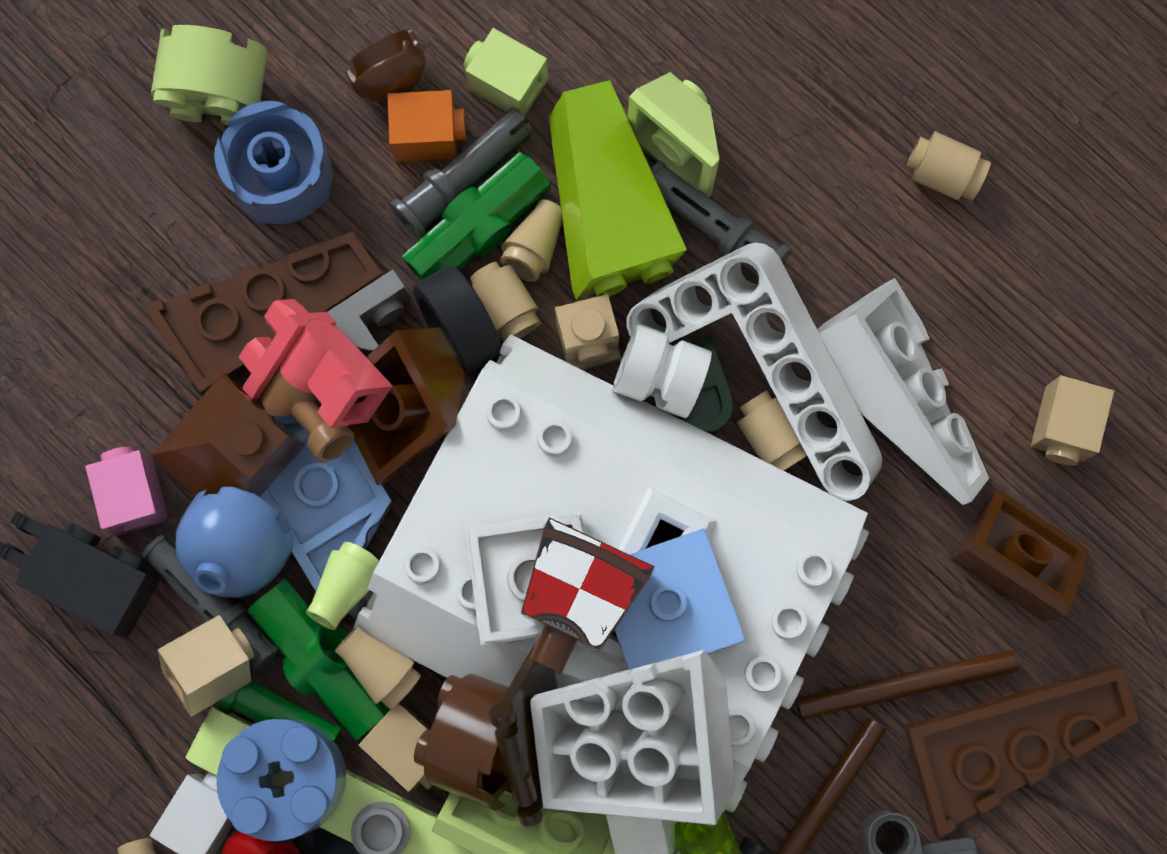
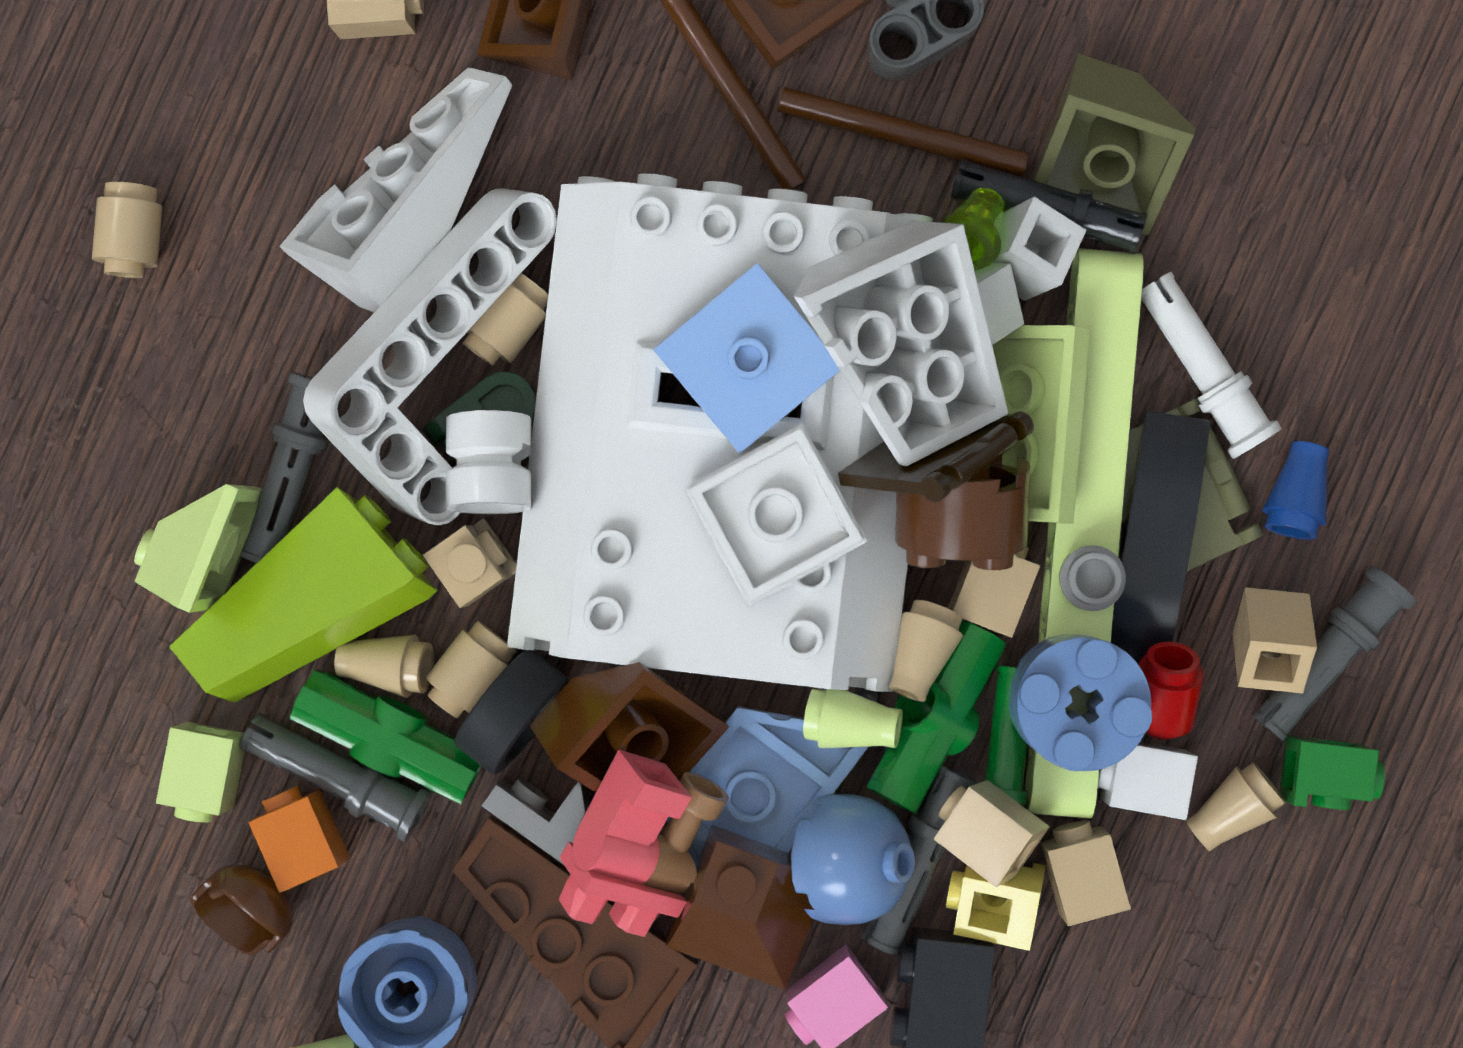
camera: 105 degrees left, 10 degrees up
(135, 655) = (1002, 918): none -> light yellow brick
(142, 734) = (1084, 873): none -> tan brick
(578, 592) = (777, 454): torso -> none

